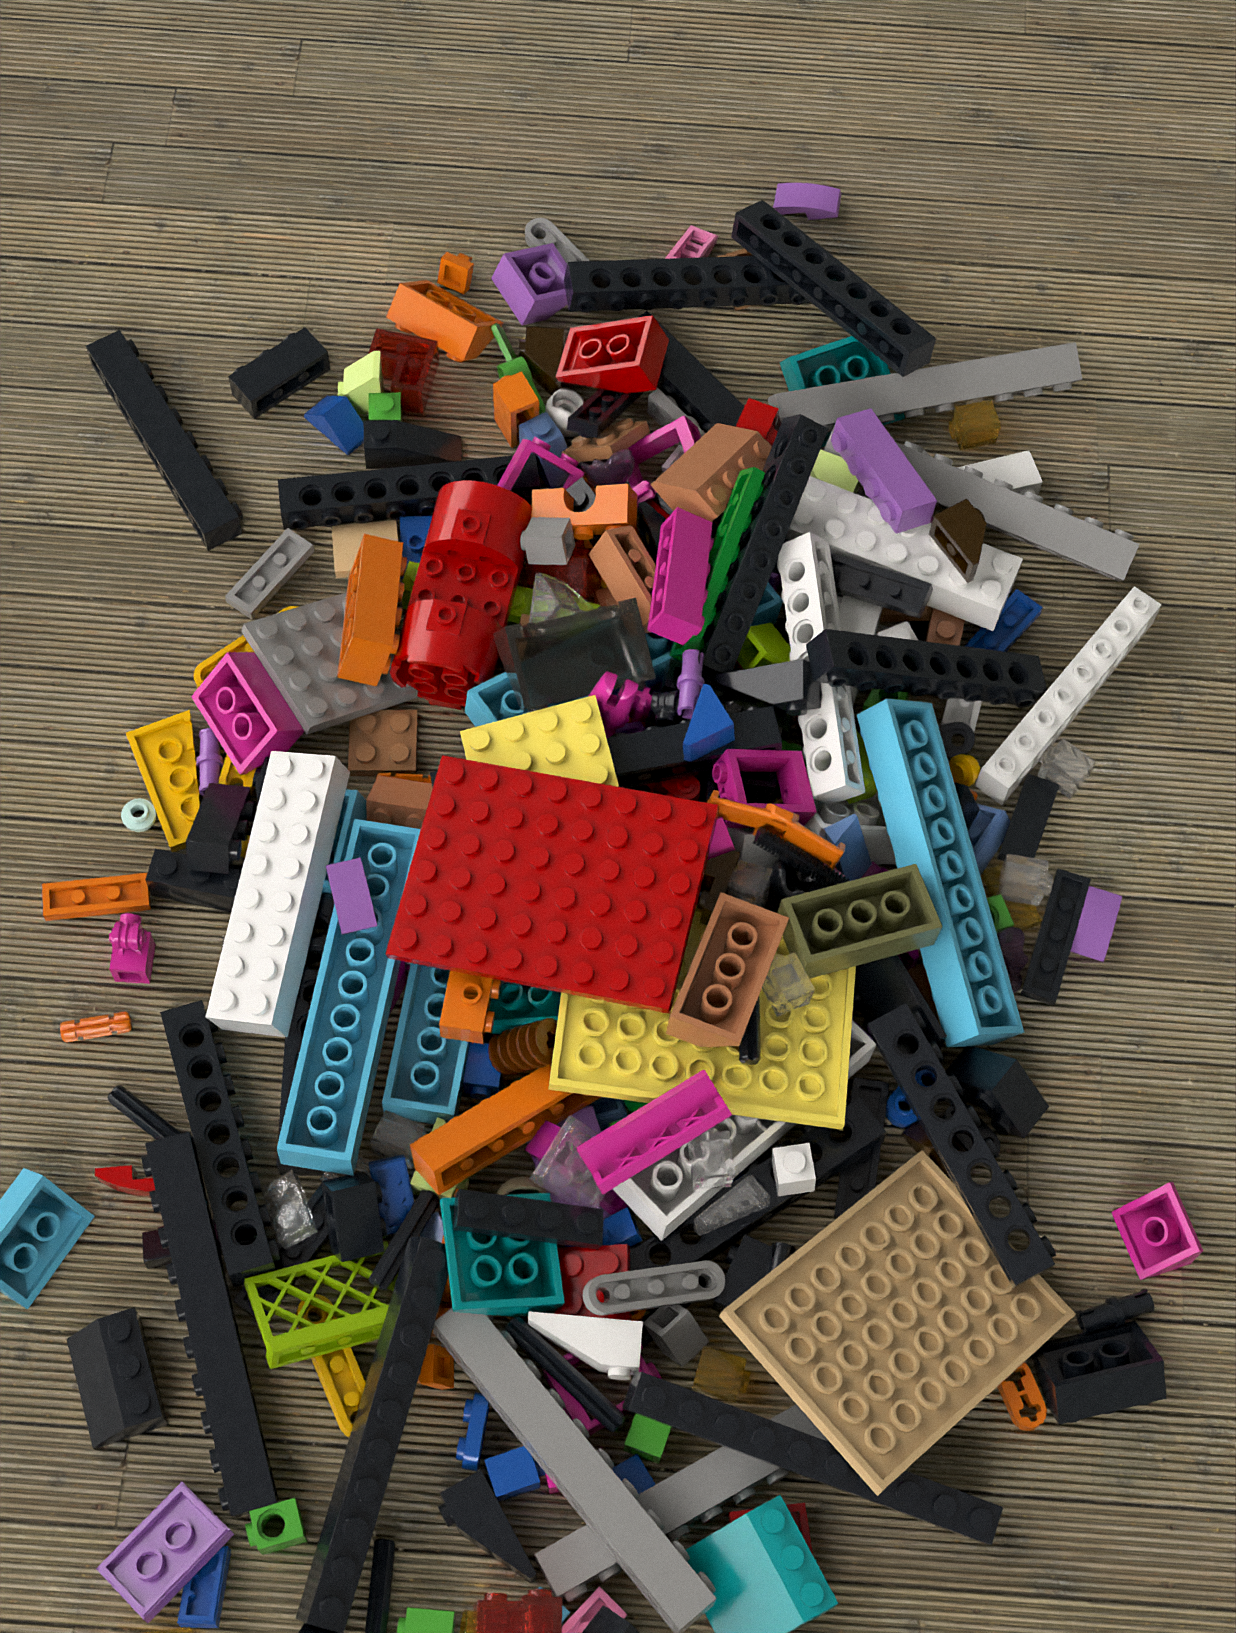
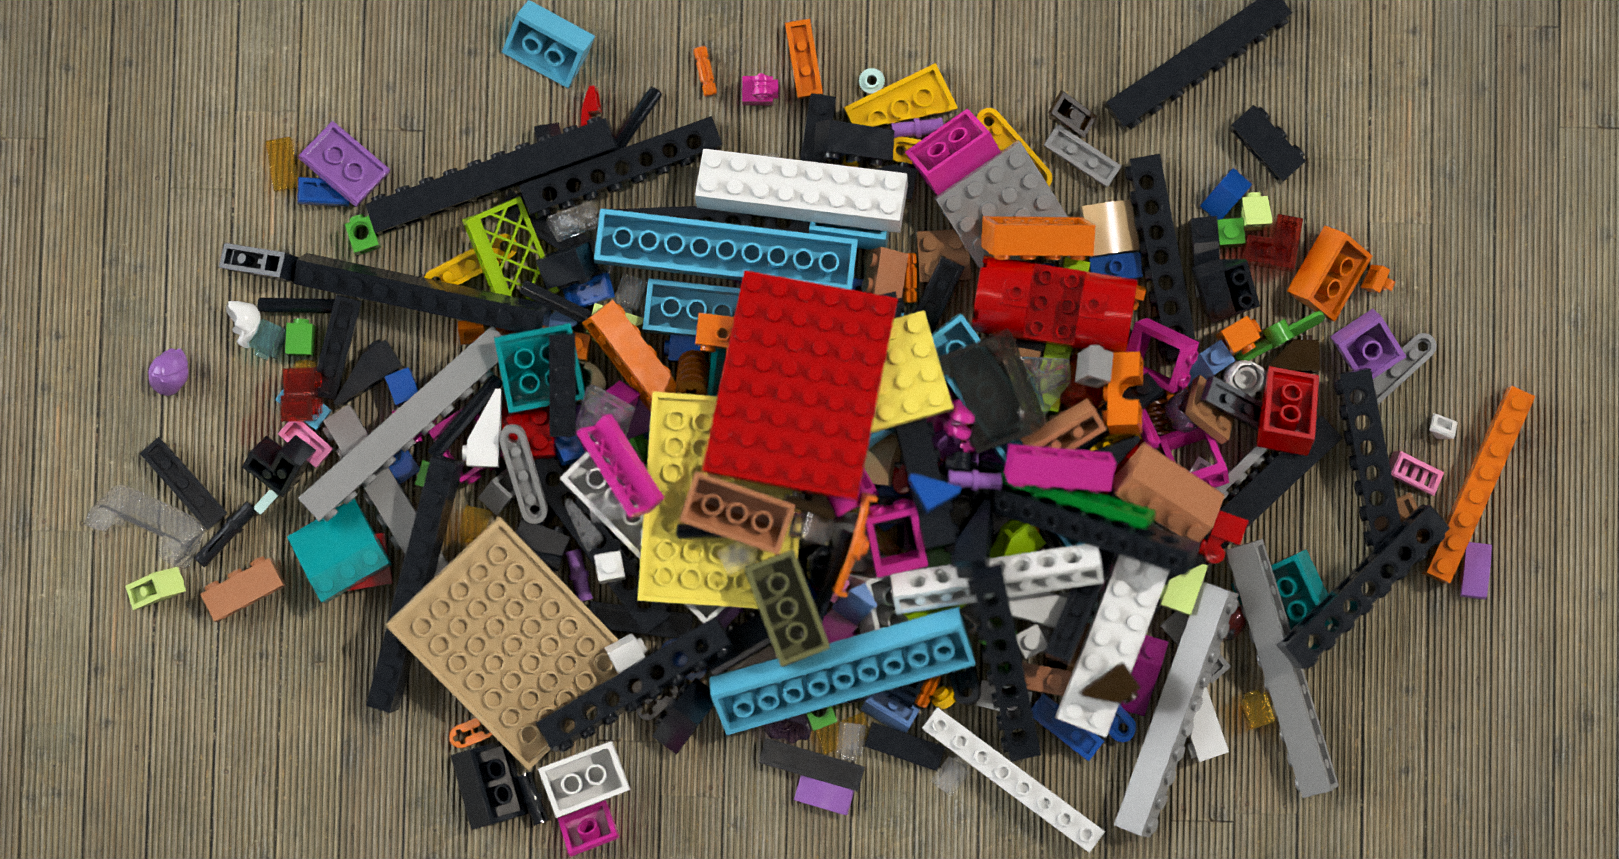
camera: 90 degrees right, 20 degrees up
(116, 1378) = (455, 118): black slope -> none
(211, 580) = (1071, 114): none -> dark brown slope
(351, 896) = (791, 242): medium lavender slope -> none
(422, 739) = (939, 290): none -> black tile
(438, 1569) = (337, 344): none -> black plate
(455, 420) = (1225, 288): none -> black slope
(470, 1447) = (419, 358): blue plate -> none
(638, 221) = (1443, 427): none -> white slope
(693, 179) = (1479, 484): none -> orange brick
(794, 1231) = (579, 575): none -> medium lavender pin
(883, 471) = (1172, 624): medium lavender brick -> none
(913, 1160) = (626, 652): none -> white brick
(1088, 1232) = (584, 779): none -> white brick

